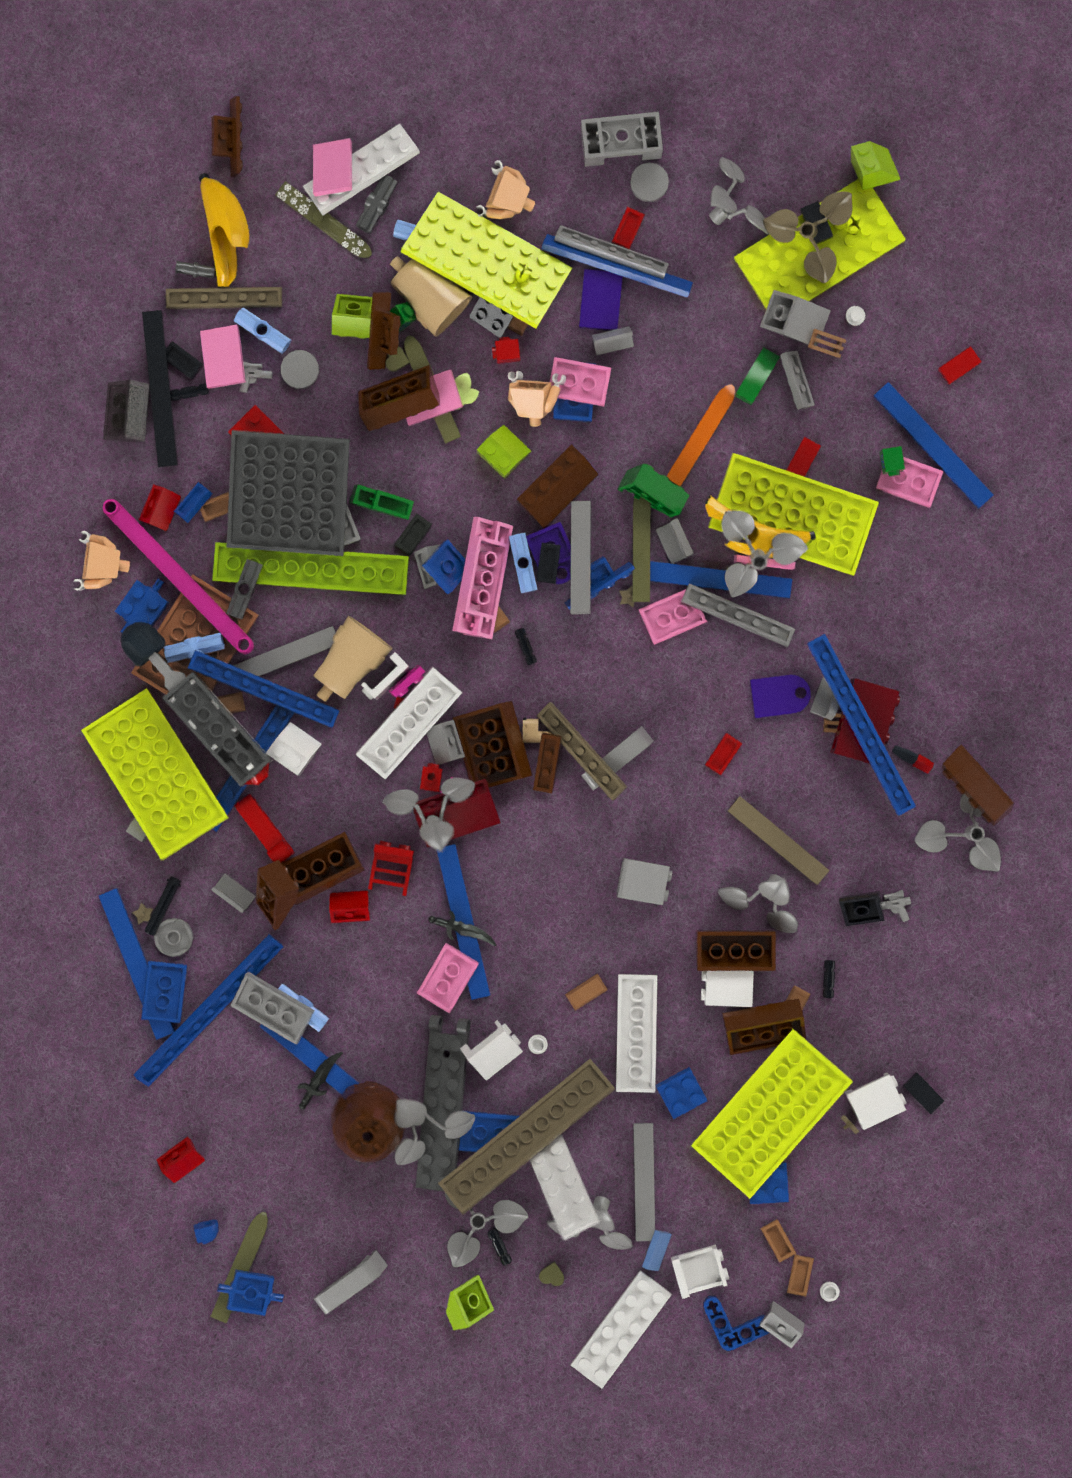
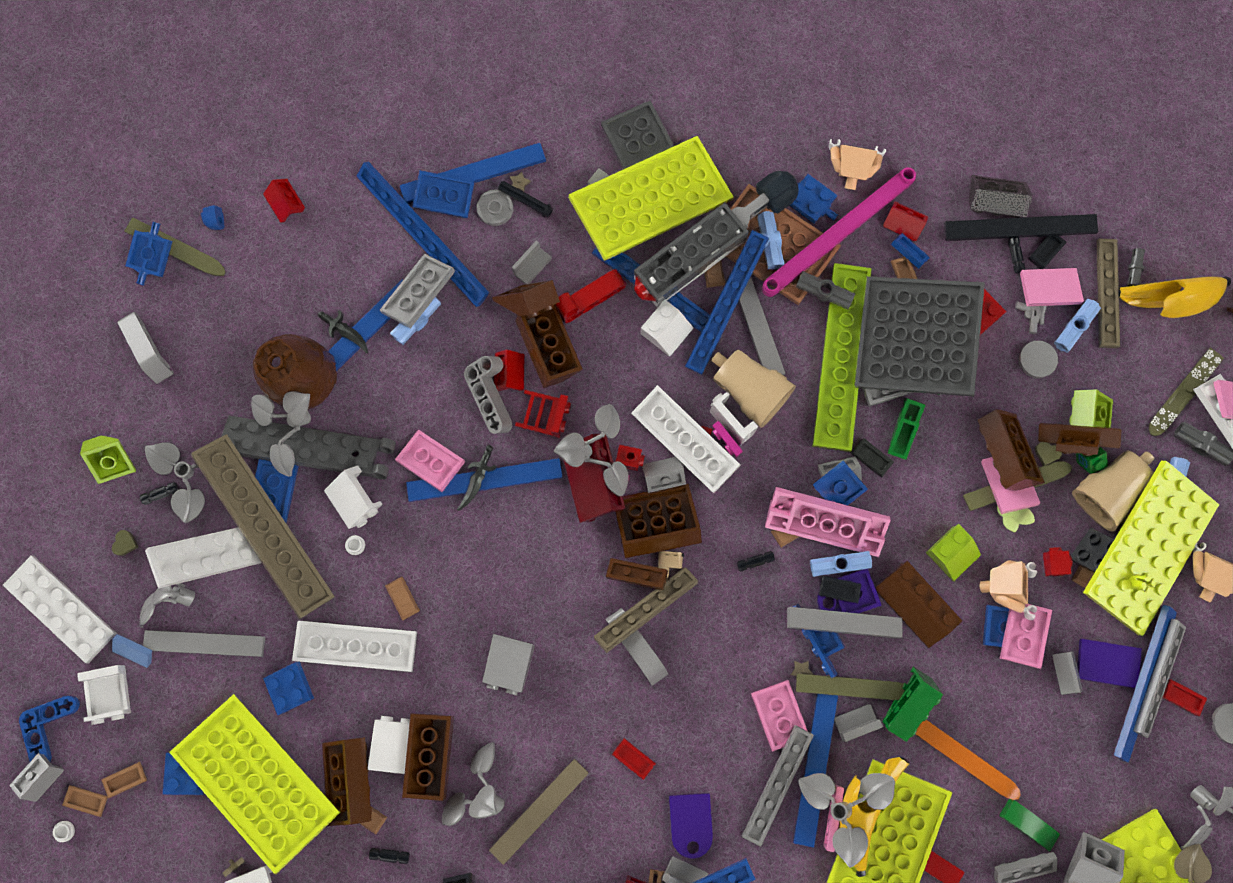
camera: 95 degrees right, 10 degrees down
(83, 793) = (636, 134): none -> dark grey plate
(403, 908) = (497, 419): none -> light grey beam

